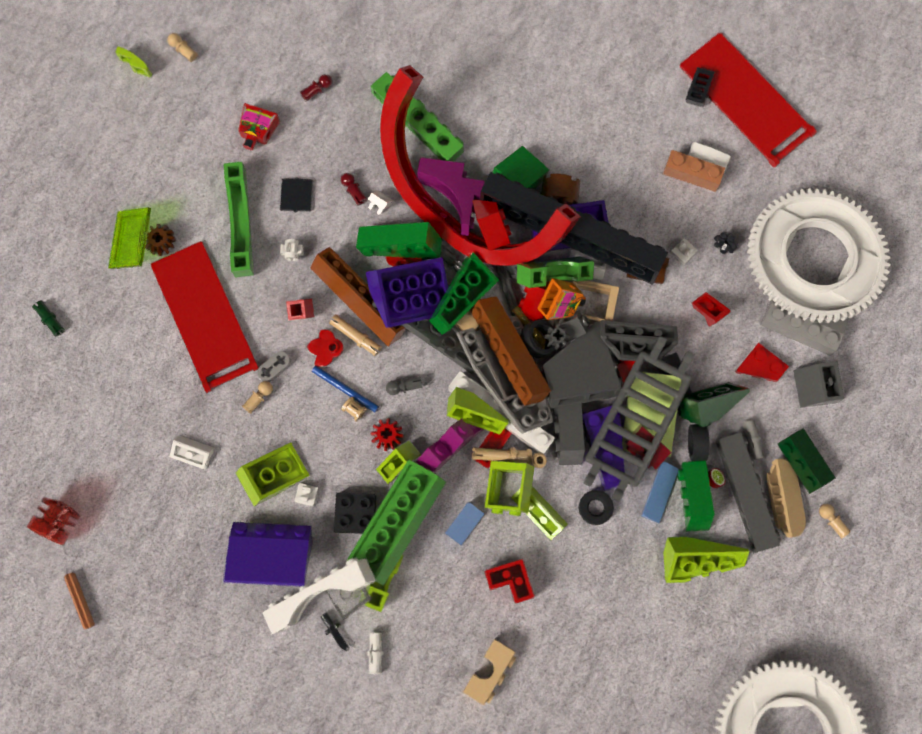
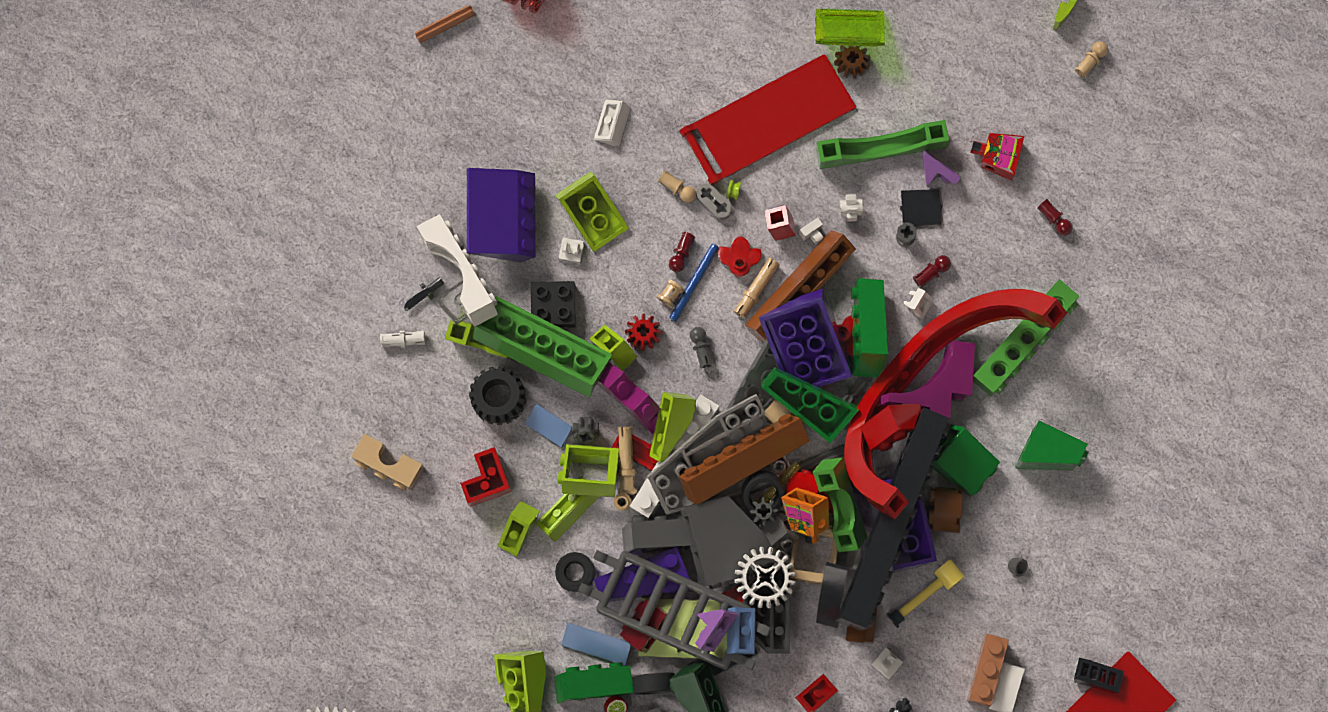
camera: 90 degrees right, 0 degrees up
(264, 179) = (933, 166): none -> medium lavender slope
(265, 348) = (733, 190): none -> lime bush
(310, 284) = (812, 230): none -> white tile
(323, 211) = (905, 242): none -> dark grey bush
(327, 401) = (677, 262): none -> dark red pin
(423, 554) = (485, 382): none -> black tyre
(471, 489) = (586, 430): none -> dark grey gear
(513, 105) = (1051, 450): none -> green slope
(555, 554) = (518, 528): none -> lime slope
(608, 142) = (1018, 566): none -> dark grey hinge
(611, 331) = (779, 564): none -> white gear
(613, 197) = (947, 576): none -> light yellow piece
(629, 286) = (832, 594): none -> black slope
(658, 378) = (717, 624): none -> medium lavender slope
(662, 361) = (742, 632): none -> medium blue slope

